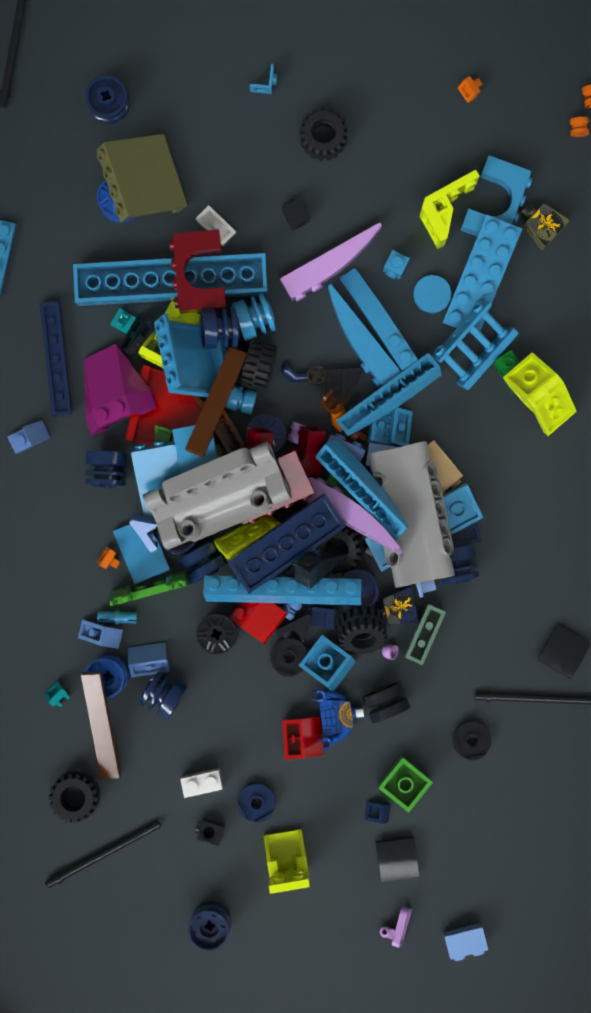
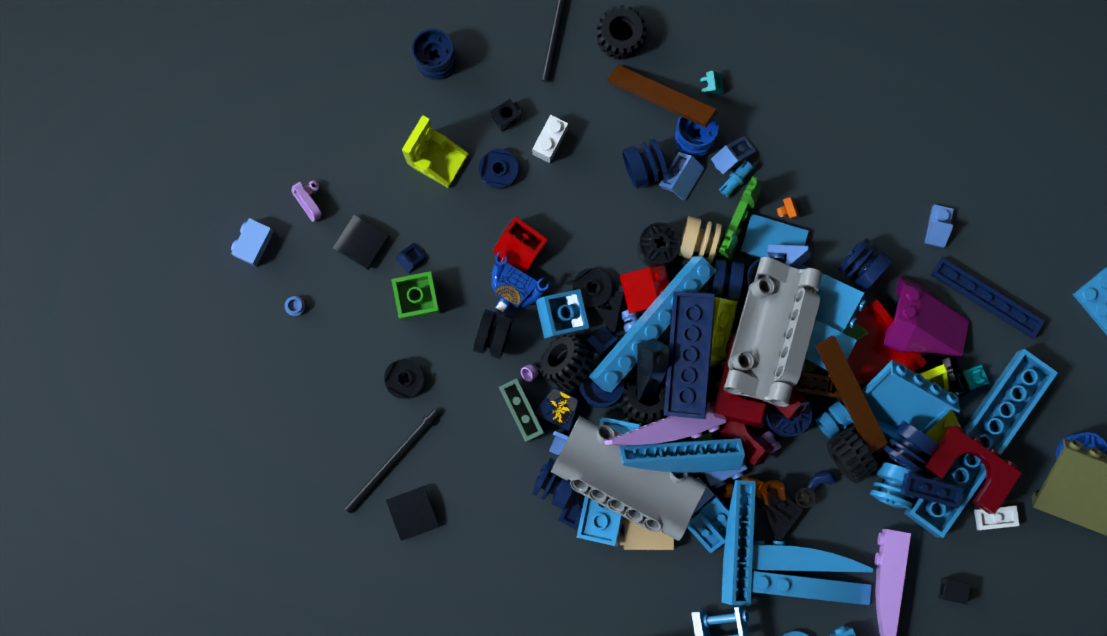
camera: 120 degrees right, 5 degrees down
(188, 606) = (700, 240): none -> tan wheel
(238, 288) = (931, 490): none -> dark blue plate
(485, 868) = (294, 306): none -> medium blue plate

